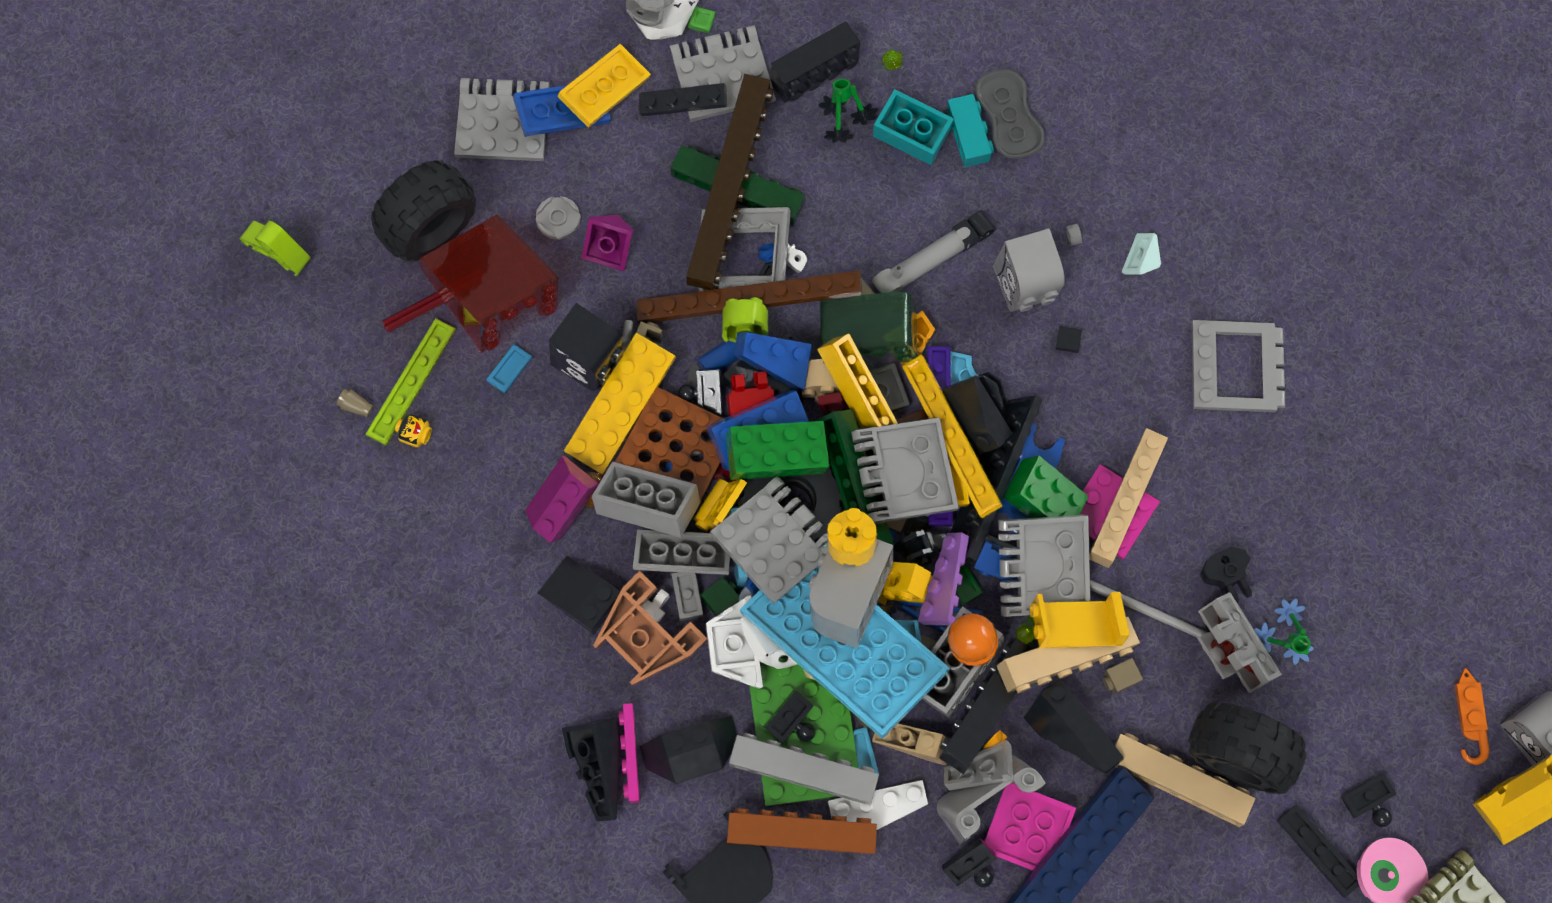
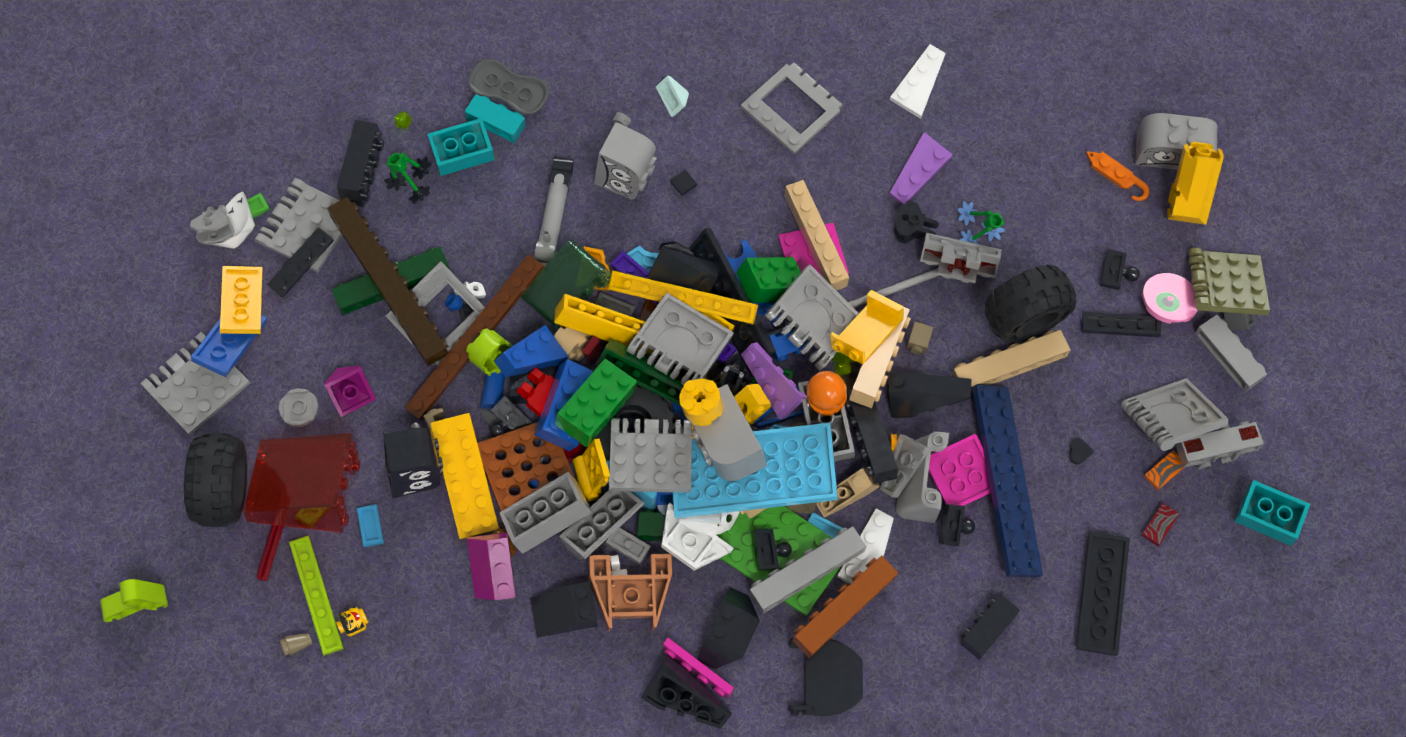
camera: 50 degrees left, 5 degrees down
(1291, 531) = (920, 168): none -> medium lavender wing
(1375, 455) = (917, 85): none -> white wing

